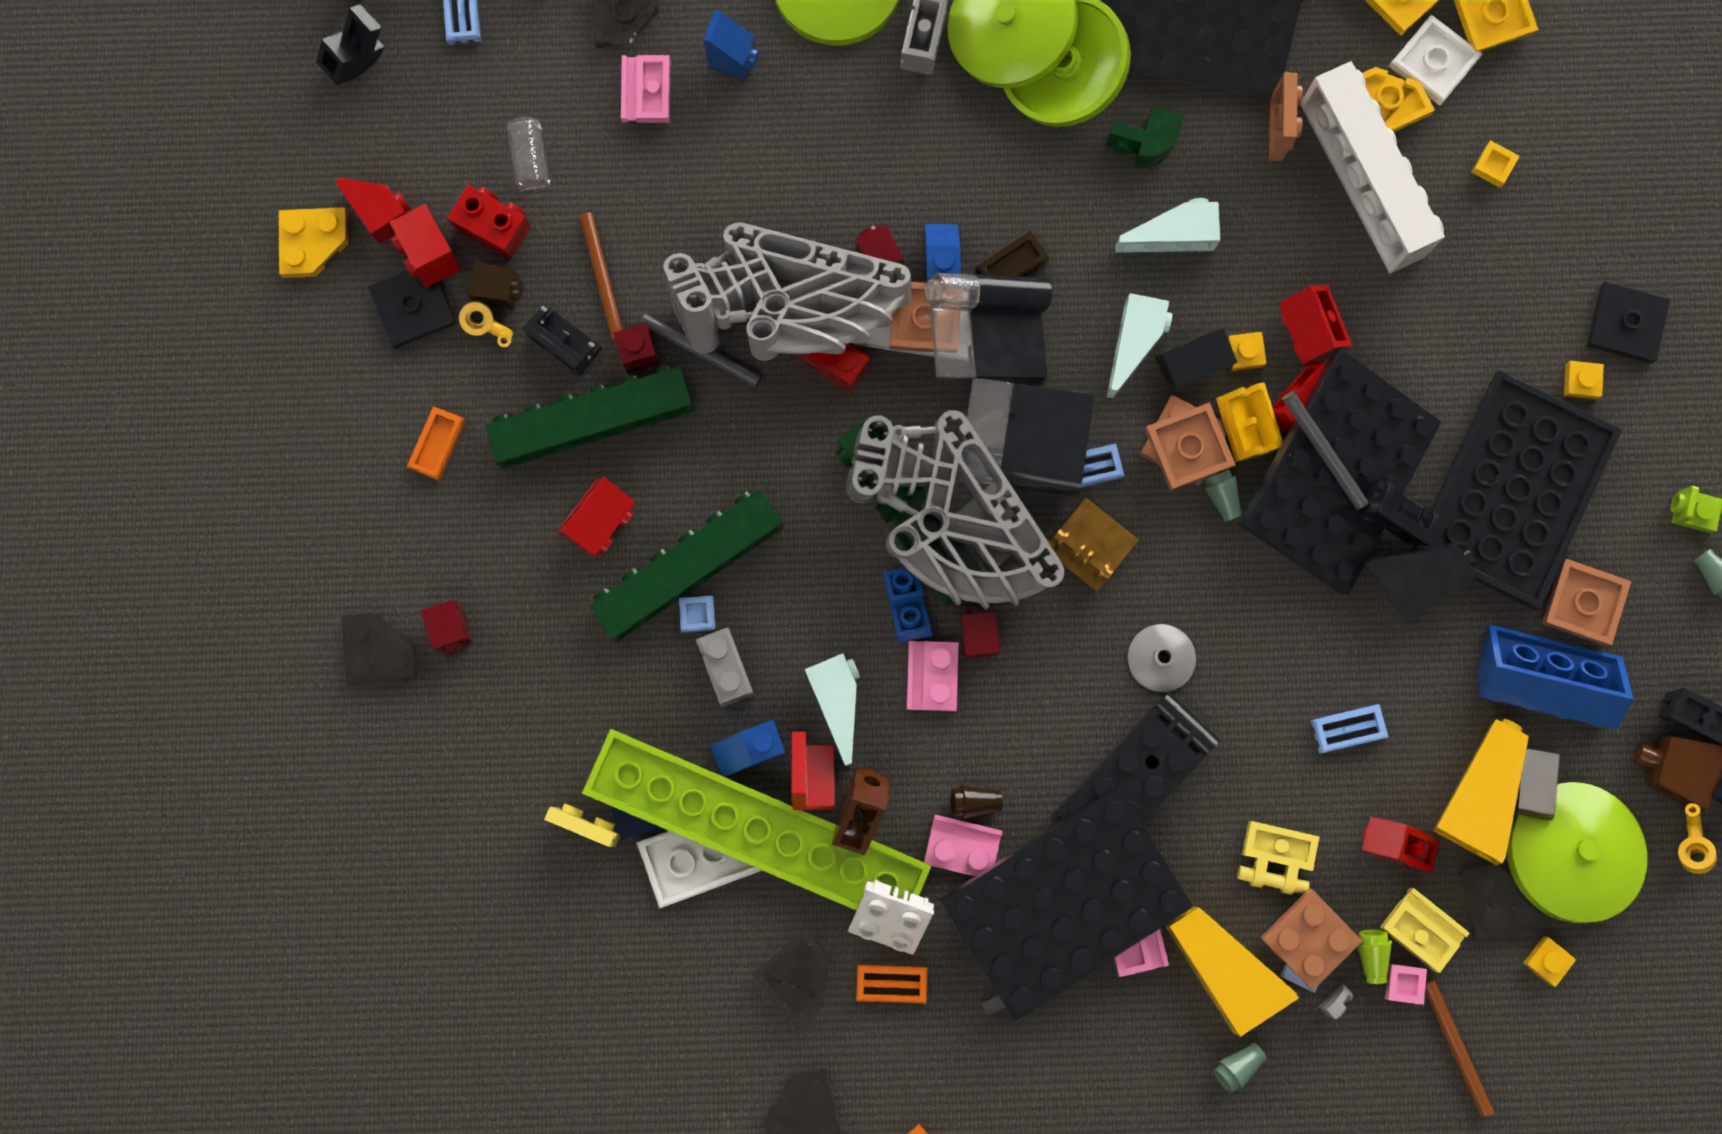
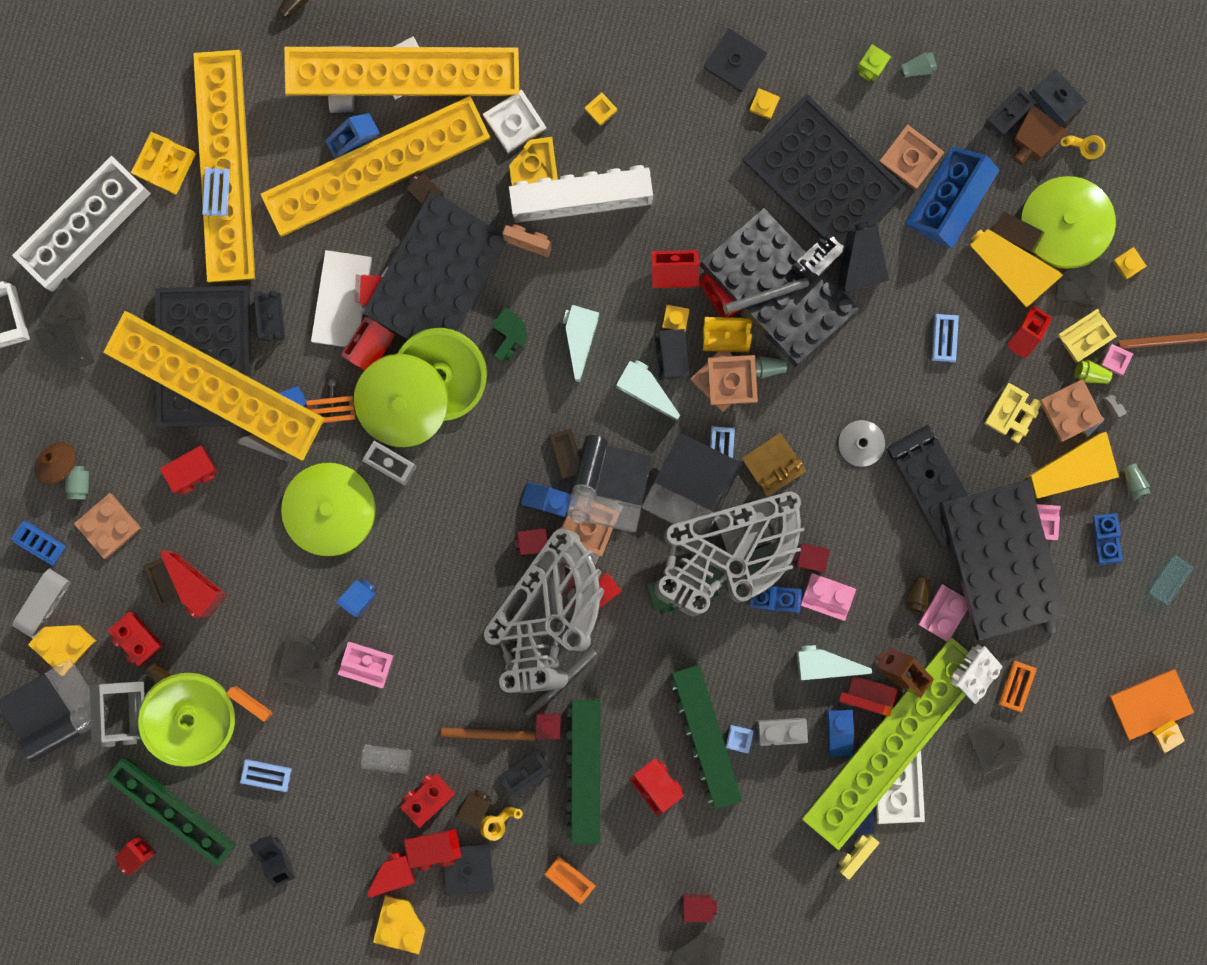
camera: 70 degrees left, 5 degrees up
(1144, 1050) = (1106, 539): none -> blue slope

